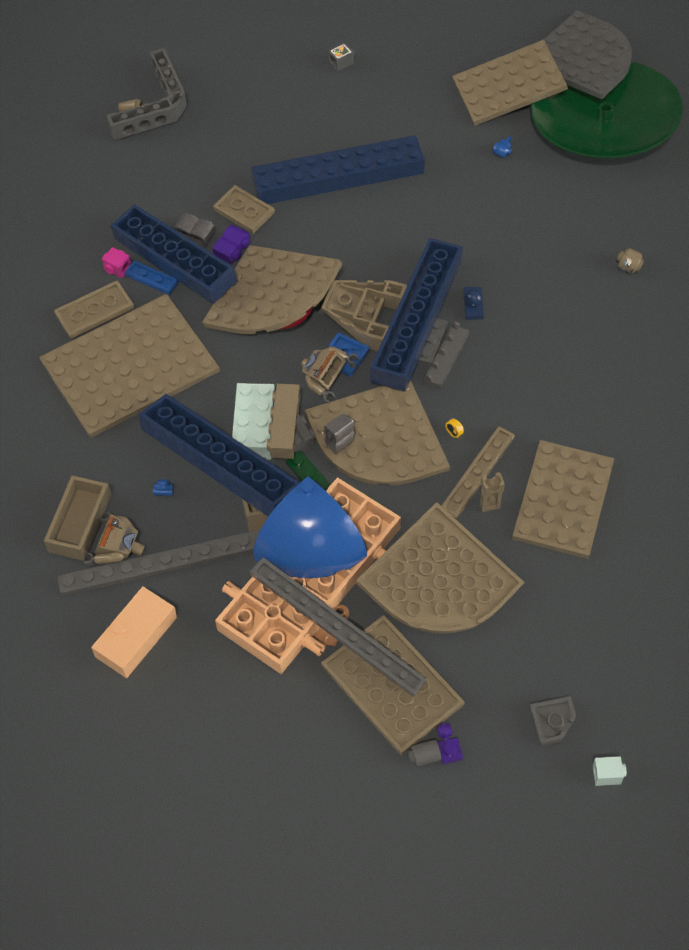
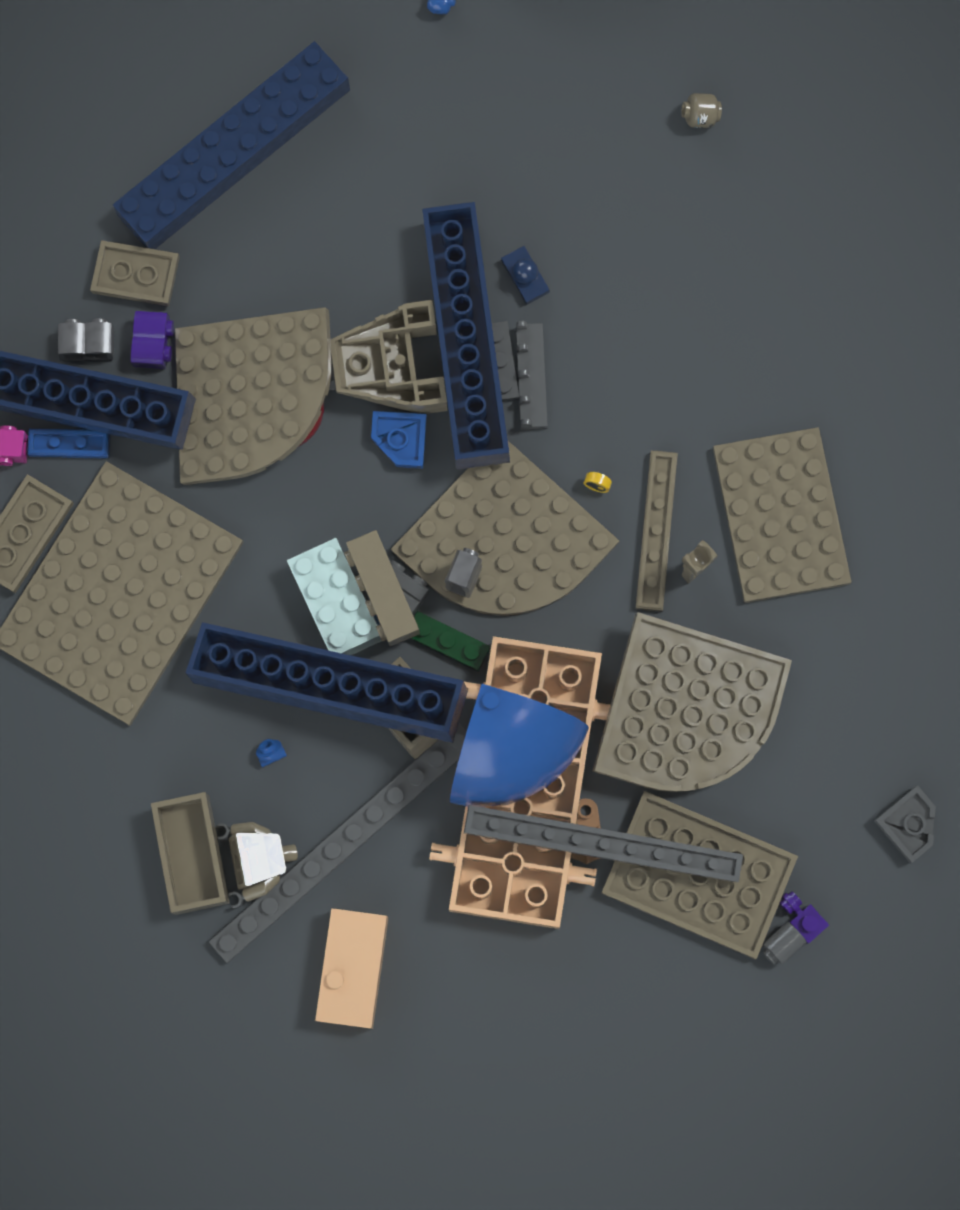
camera: 25 degrees left, 20 degrees up
(323, 369) = (385, 479): dark tan torso -> none

